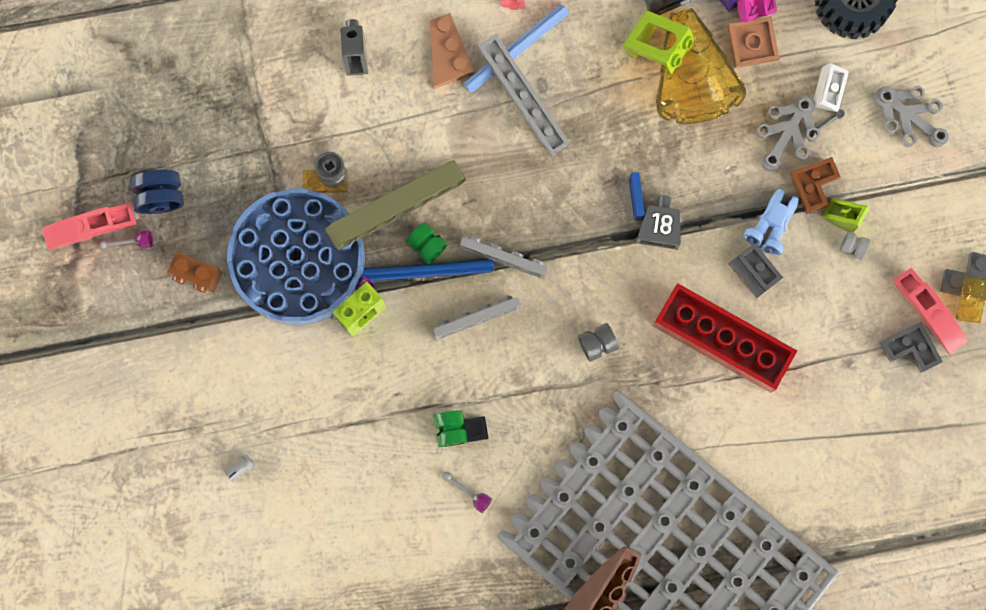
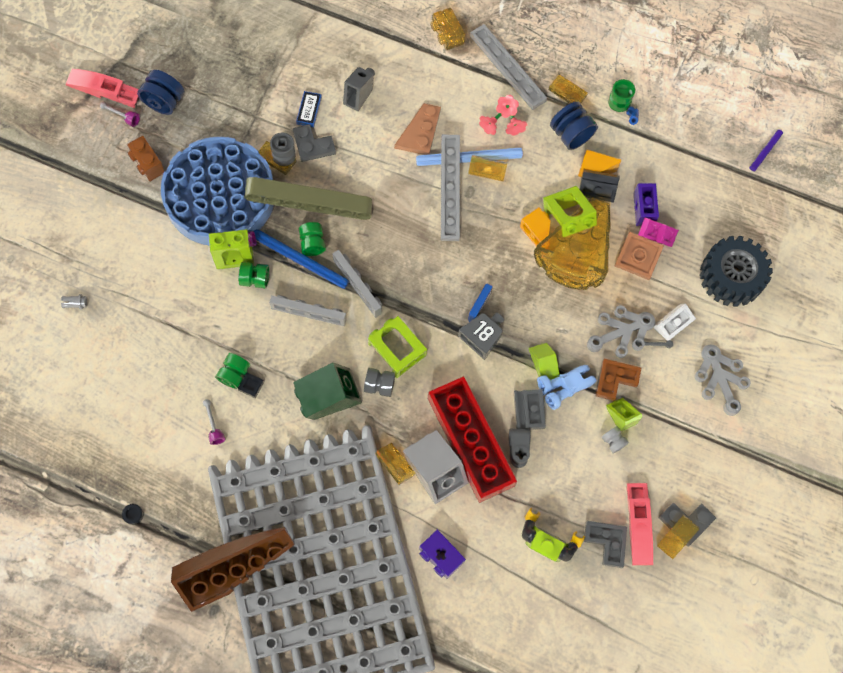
camera: 30 degrees right, 10 degrees down
(317, 105) = (309, 109): none -> tile
(349, 146) = (312, 148): none -> dark grey plate
(390, 322) = (247, 275): none -> green wheel
(544, 48) = (487, 168): none -> clear yellow plate
(555, 386) = (326, 391): none -> dark green slope
(567, 304) = (410, 360): none -> lime panel
(637, 80) = (536, 225): none -> light orange slope
(668, 410) = (395, 463): none -> clear yellow plate
(708, 386) = (436, 466): none -> light grey slope
(736, 212) = (545, 361): none -> lime slope
(770, 310) = (519, 444): none -> dark grey piece
(785, 462) = (452, 557): none -> dark purple brick
(860, 389) = (546, 543): none -> torso

